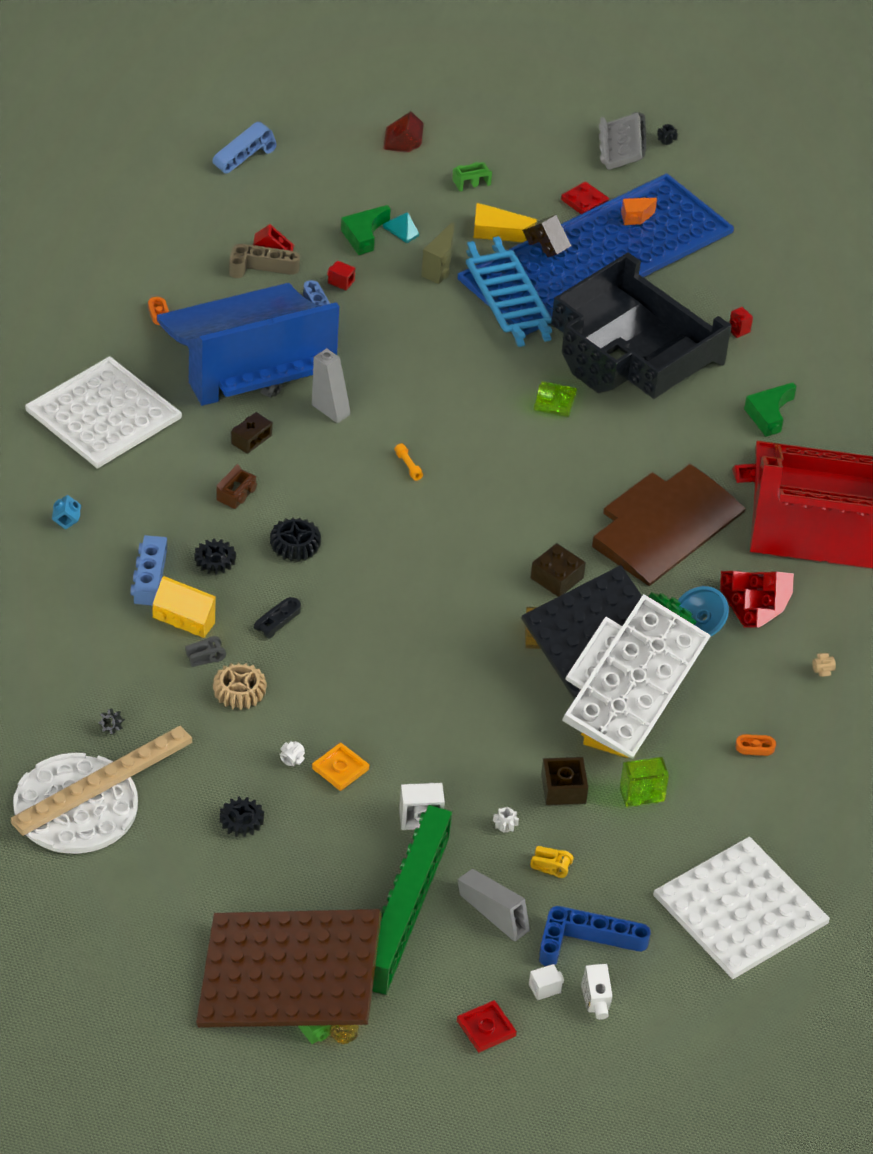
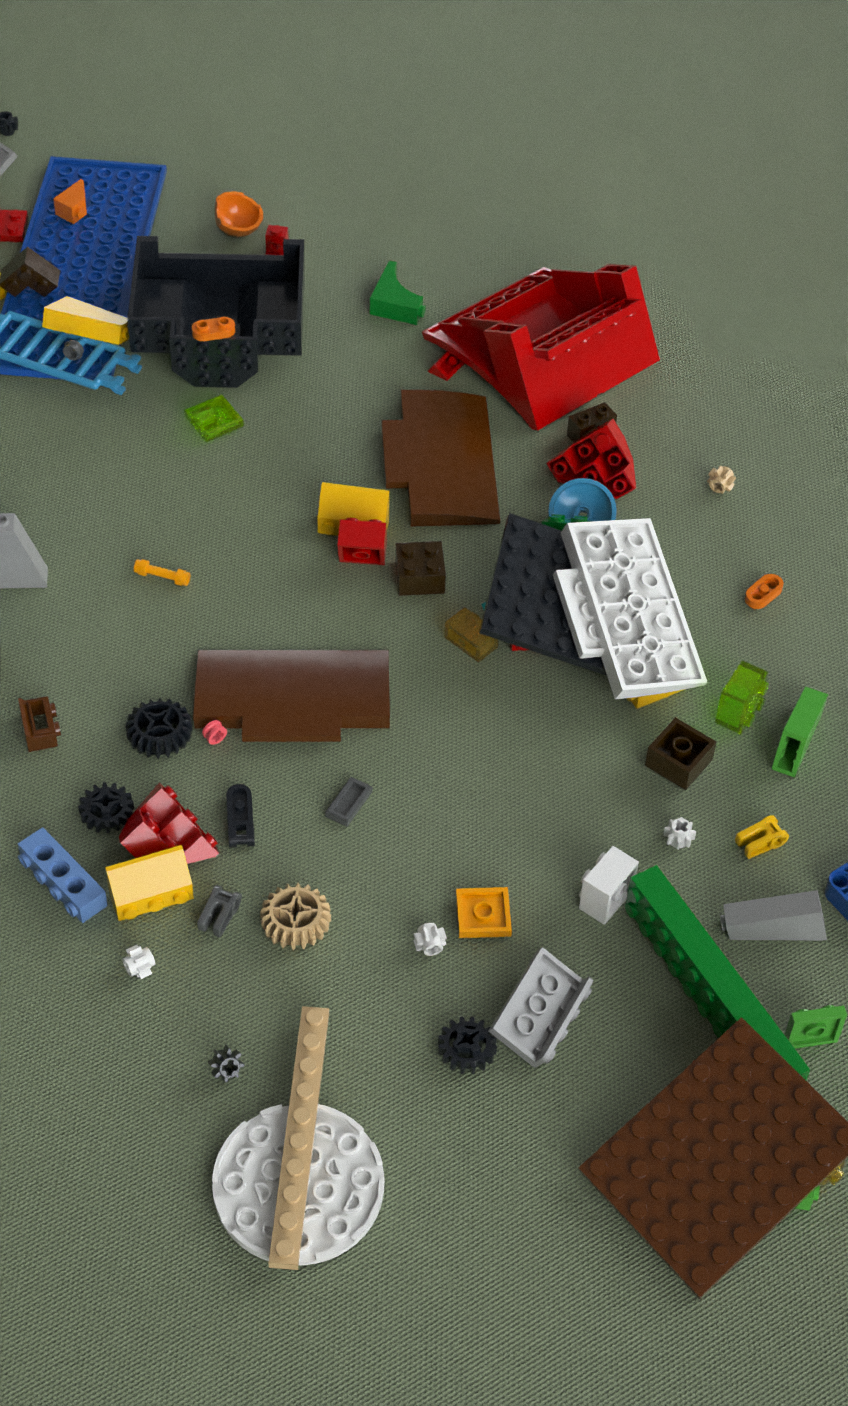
camera: 45 degrees left, 5 degrees up
(132, 640) = (138, 961): none -> white gear
(233, 589) = (164, 824): none -> red brick
(302, 831) = (540, 1008): none -> light grey bracket
(320, 568) = (214, 732): none -> coral bush
(348, 657) = (348, 801): none -> dark grey tile
(394, 579) = (292, 692): none -> reddish brown slope
(432, 963) = (816, 1026): none -> bright green plate
(515, 298) = (73, 350): none -> dark grey plate
(537, 526) = (362, 541): none -> red brick
(541, 280) = (85, 320): none -> yellow slope
(558, 509) = (348, 501): none -> yellow slope
(596, 338) = (213, 329): none -> orange plate
(656, 827) = (799, 731): none -> bright green slope
(734, 287) = (237, 214): none -> orange cylinder
(788, 565) = (588, 420): none -> dark brown brick

